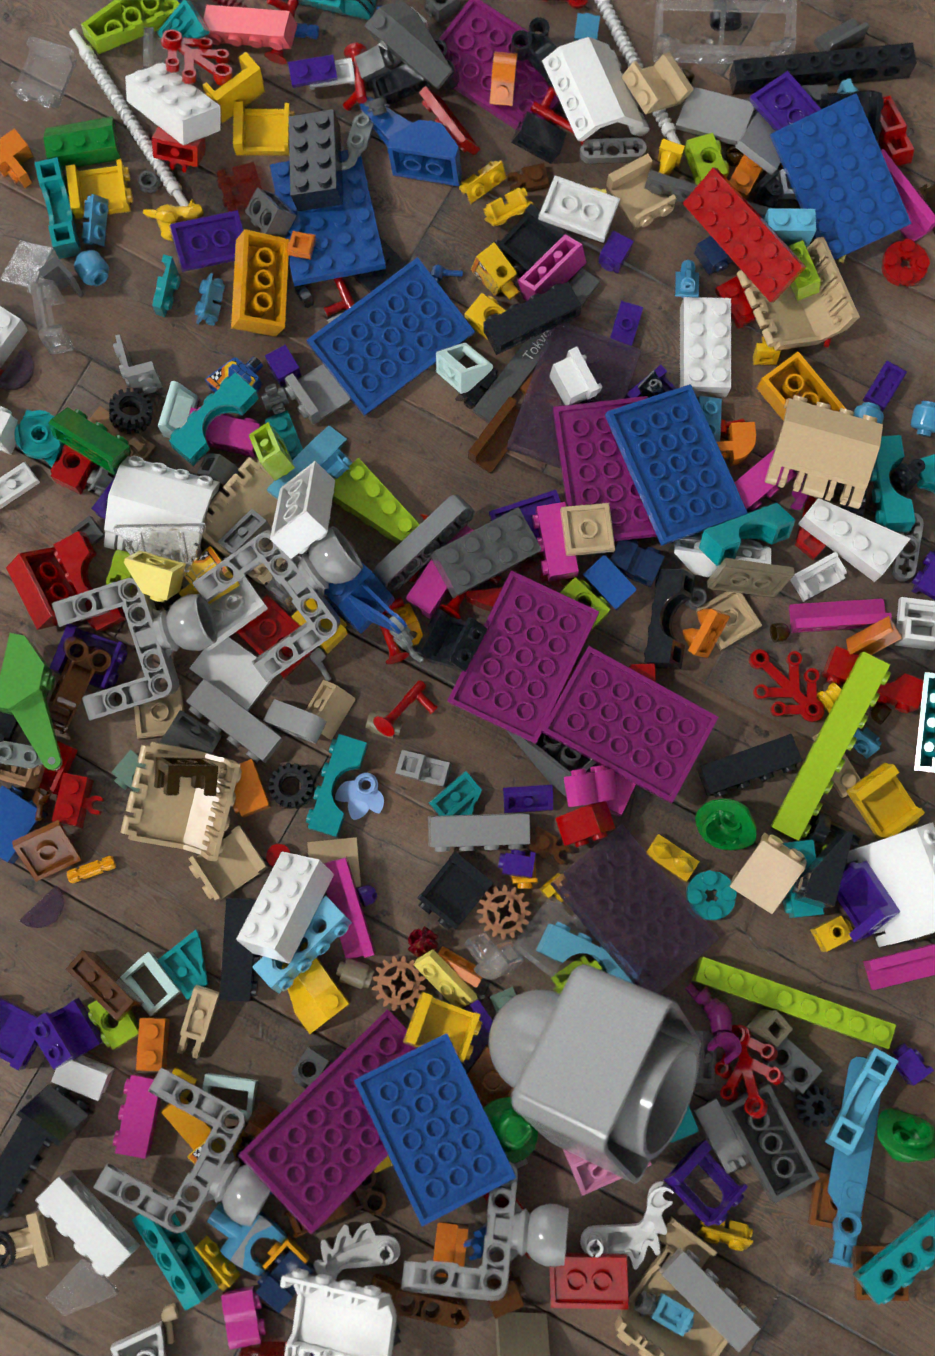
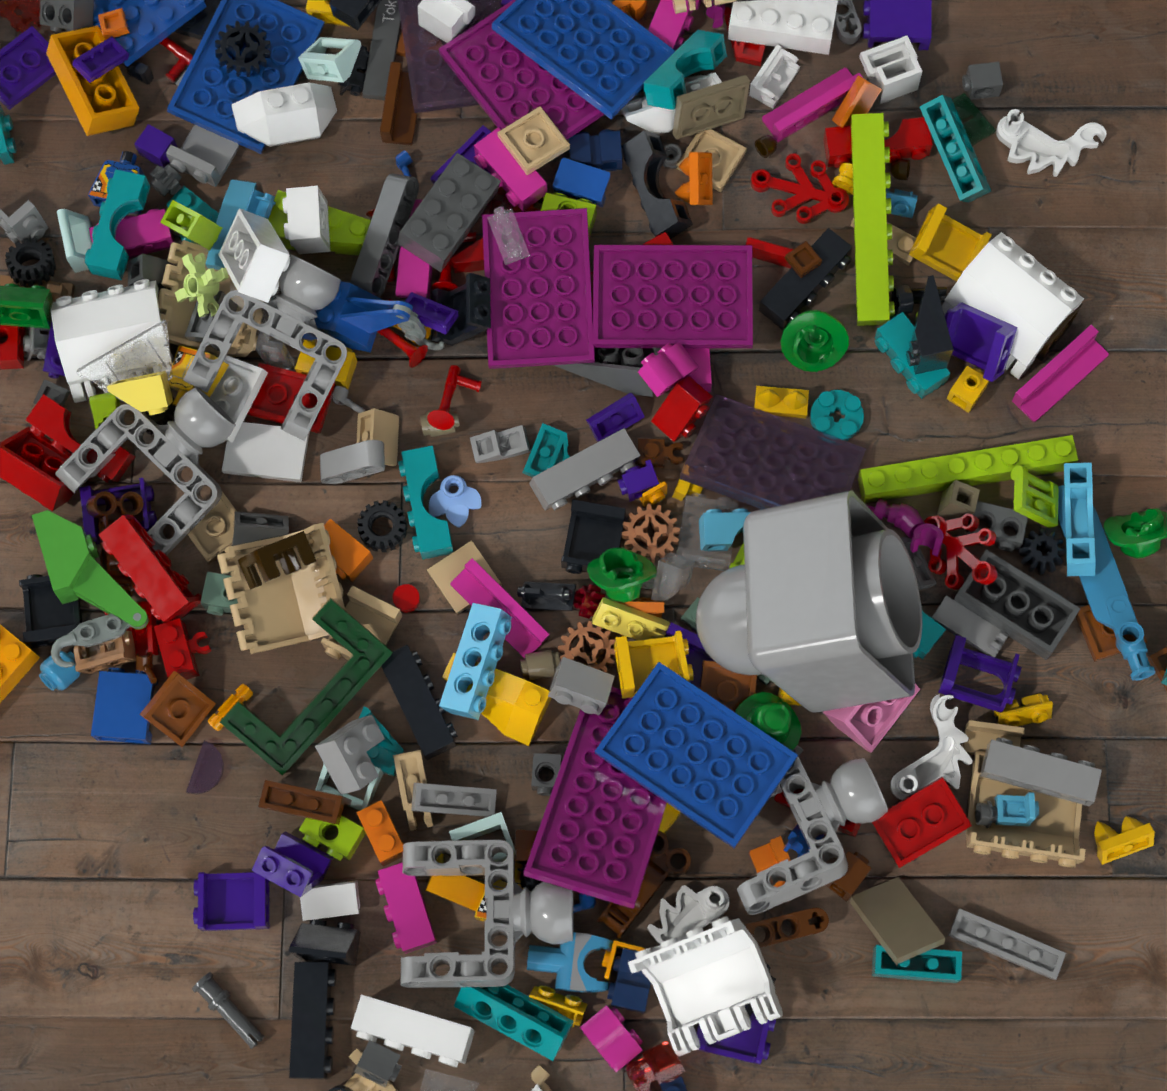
camera: 20 degrees left, 5 degrees down
(43, 1239) = (378, 1064): none -> dark grey brick
(83, 725) = (148, 569): none -> red wedge
(114, 930) = (285, 749): none -> dark green plate
(156, 965) = (346, 754): none -> light grey brick
(210, 291) = (50, 133): dark azure hinge -> none
(223, 1049) = (453, 799): none -> light grey plate
(233, 720) = (293, 495): light grey brick -> none
(251, 508) = (201, 284): none -> yellowish green pin
(273, 271) = (100, 59): none -> dark purple plate
(285, 907) = (439, 632): white brick -> none
(364, 500) = (307, 219): none -> white brick
(367, 895) = (511, 587): dark purple hinge -> none
(374, 1015) = (581, 686): none -> light grey brick
(391, 918) = (547, 596): none -> black hinge
(400, 395) = (286, 113): none -> white wedge
(401, 328) = (233, 41): none -> black gear
(423, 629) = (432, 313): none -> dark purple plate
(459, 938) = (621, 573): none -> green hat
(475, 483) = (402, 161): none -> blue hand
(521, 601) = (508, 235): none -> clear hinge
(733, 727) = (769, 252): none -> red tile
(755, 750) = (803, 259): none -> reddish brown tile
(769, 873) = (878, 362): tan panel -> none
(830, 1064) = (1034, 504): none -> lime plate
(910, 1064) = (1107, 467): dark purple brick -> none

